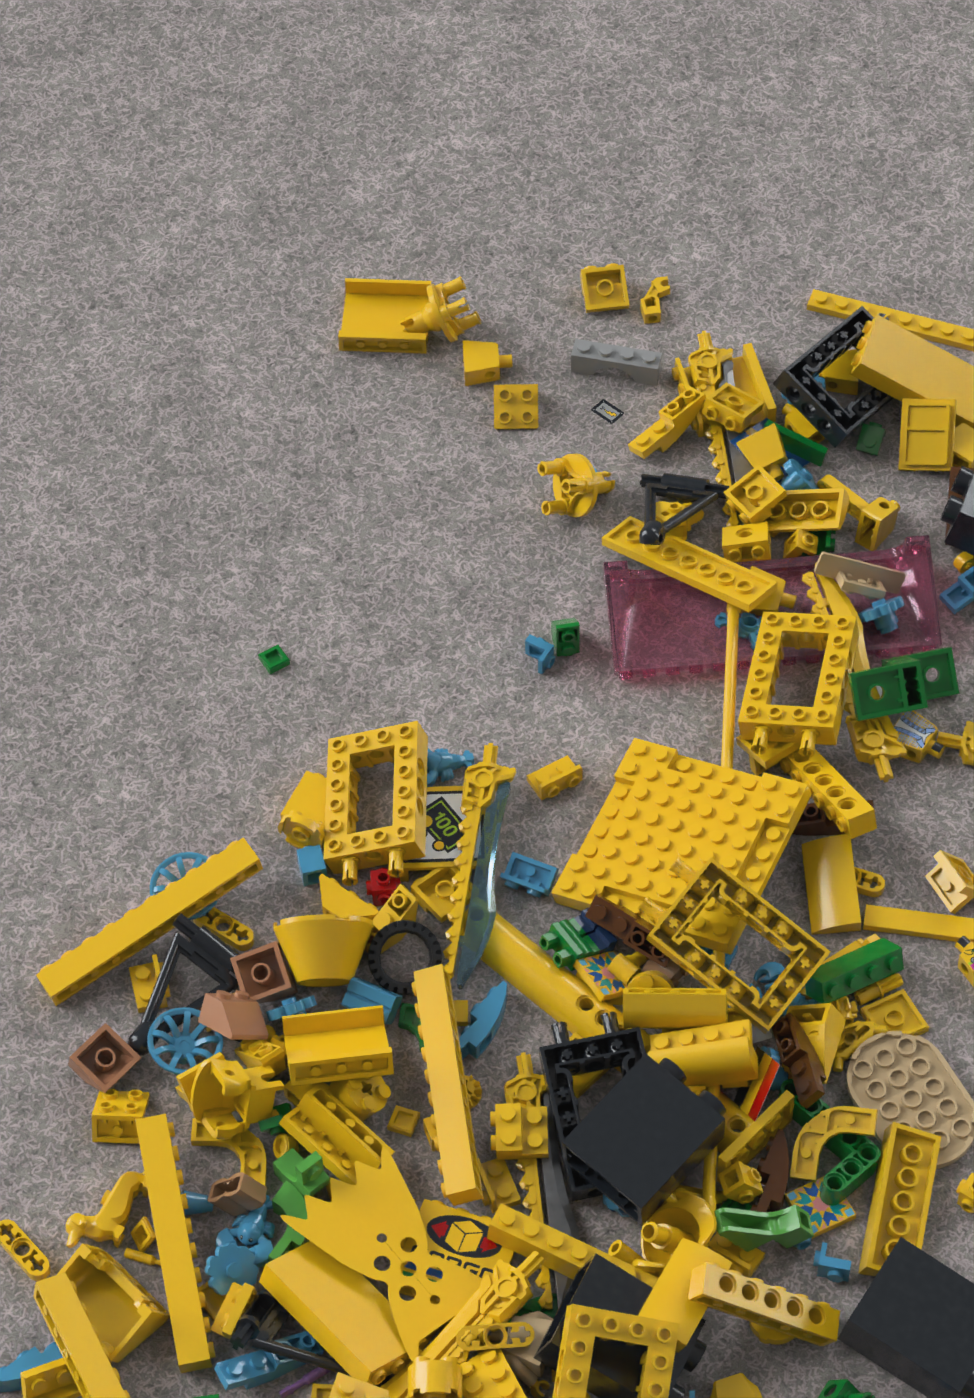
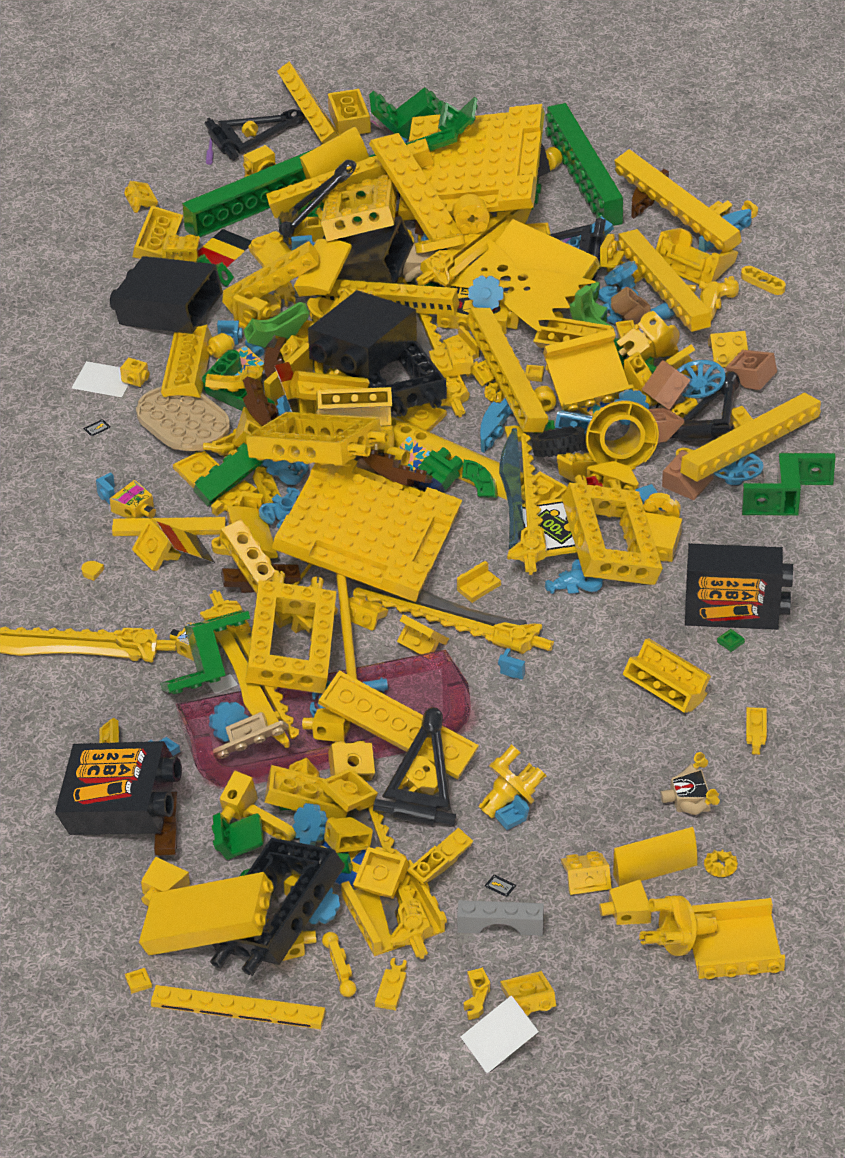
camera: 170 degrees right, 10 degrees down
(129, 845) = (784, 496): none -> green bracket
(253, 899) = (680, 483): none -> nougat slope
(254, 671) = (736, 586): none -> black brick
(284, 540) = (756, 728): none -> yellow hinge
(367, 406) = (716, 868): none -> yellow gear
(367, 605) = (668, 676): none -> yellow brick
(381, 468) = (690, 789): none -> torso
(405, 1057) = (546, 397): none -> yellow head
(442, 397) = (655, 856): none -> yellow slope
(444, 1230) = (486, 292): none -> dark azure plant
(481, 1124) = (482, 372): none -> yellow bracket
(519, 925) = (481, 478): none -> green tile
(529, 874) = (483, 512): dark azure bracket -> none
(544, 706) = (500, 630): none -> yellow piece
(566, 636) = (492, 672): green slope -> none
(636, 702) = (419, 637): none -> yellow bracket
(641, 251) = (499, 1034): none -> white sticker
(697, 748) = (365, 612): none -> yellow bracket
(704, 649) = (379, 685): none -> dark azure pin
(737, 321) = (391, 986): none -> yellow plate
(740, 1341) = (287, 293): none -> yellow plate
(781, 902) = (280, 507): none -> dark azure animal
(784, 332) = (338, 957): none -> yellow plate
(795, 1270) = (247, 309): none -> yellow plate
(830, 939) = (250, 499): none -> yellow bracket
(848, 1231) = (220, 344): none -> yellow head
(875, 481) = (238, 836): none -> green bracket
(918, 868) = (185, 542): none -> sticker
(927, 434) = (196, 869): yellow piece -> none

